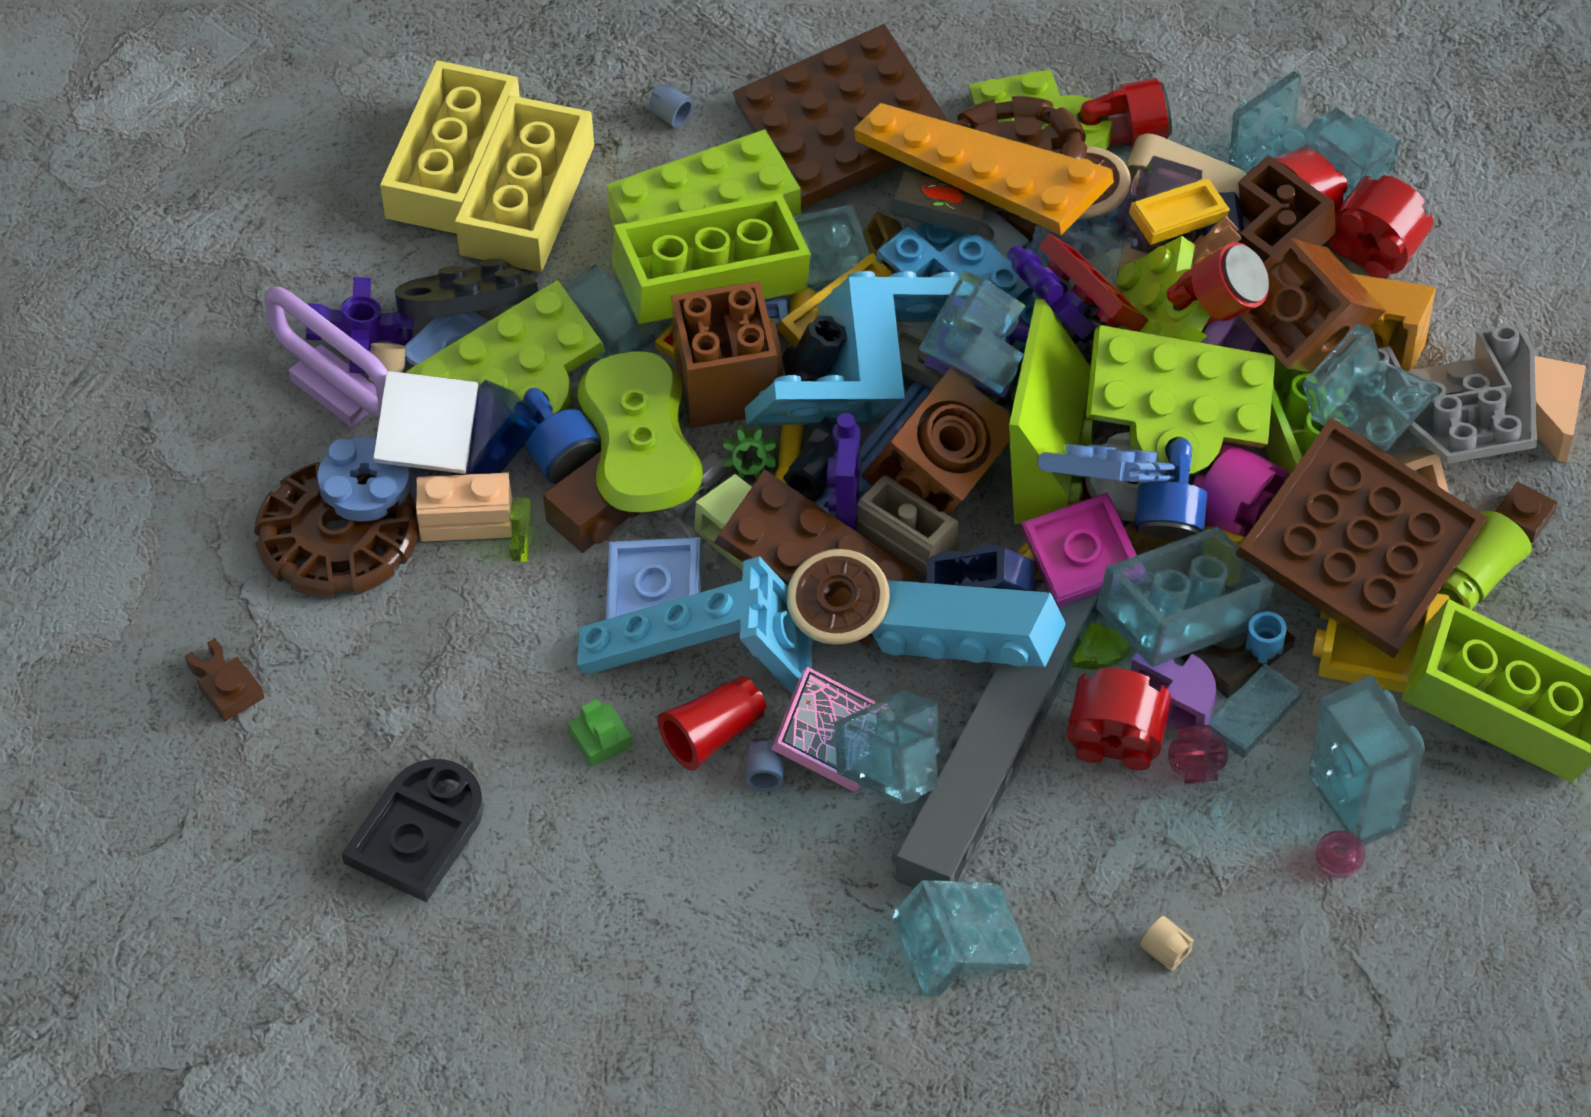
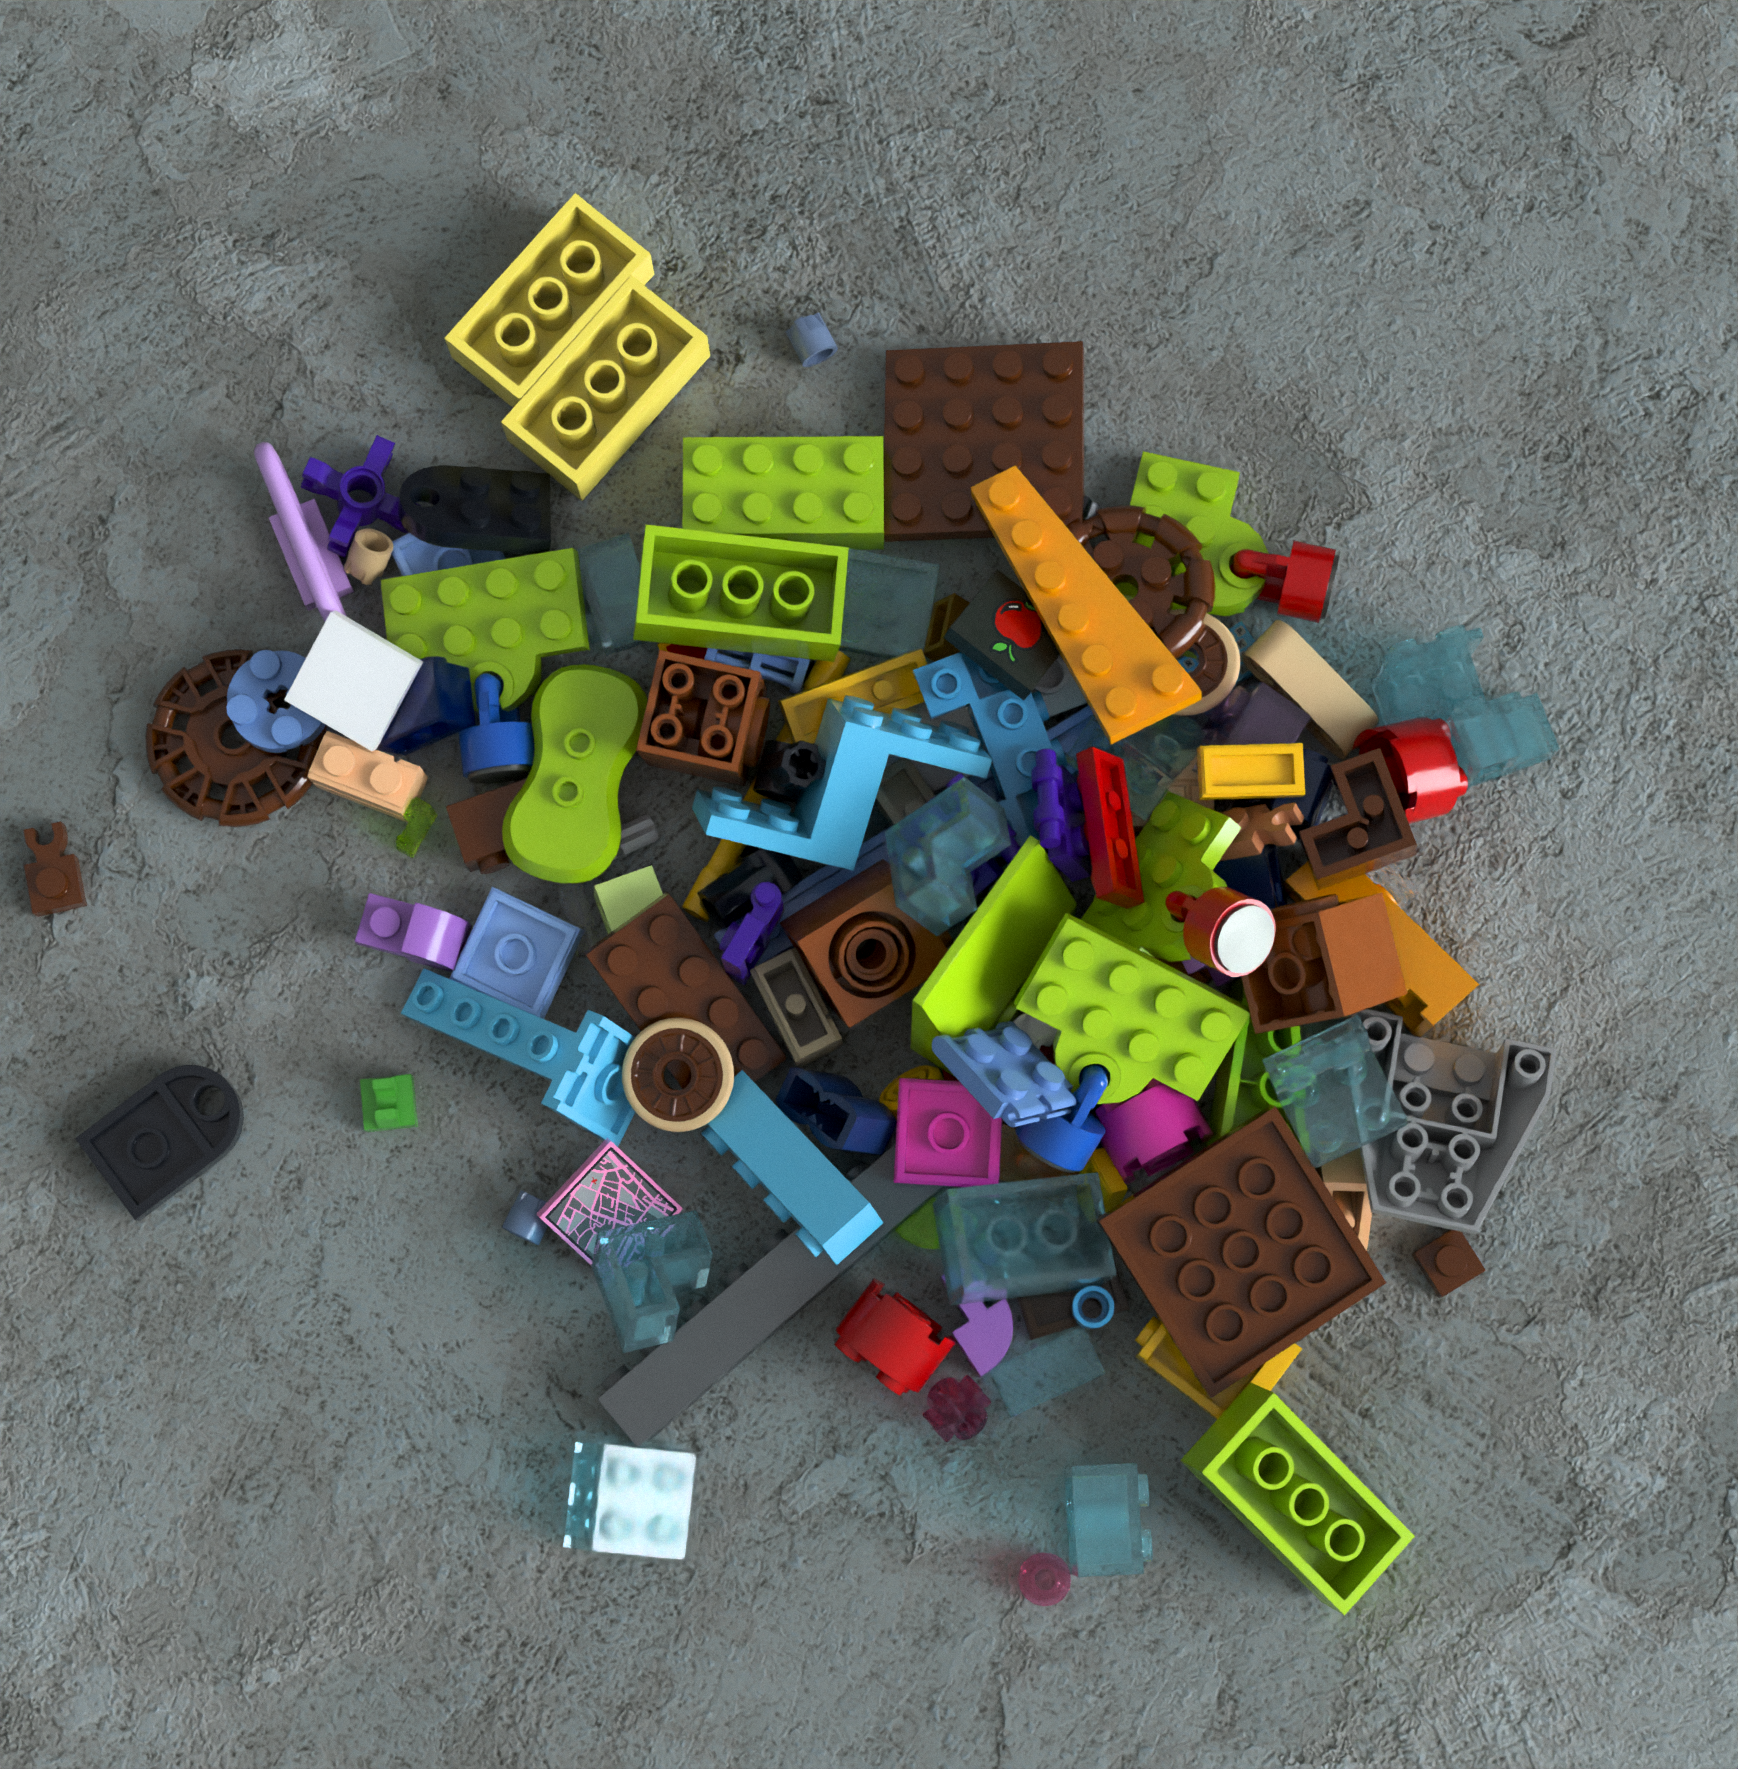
camera: 25 degrees right, 25 degrees up
(568, 597) = (413, 932): none -> medium lavender brick
(710, 721) = (499, 1147): red plant -> none
(742, 443) = (681, 839): bright green gear -> none
(1167, 943) = (822, 1602): tan hose -> none
(1381, 225) = (1479, 851): red brick -> none
(1487, 560) = (1371, 1318): lime plant -> none
(1557, 403) = (1550, 1153): light nougat slope -> none

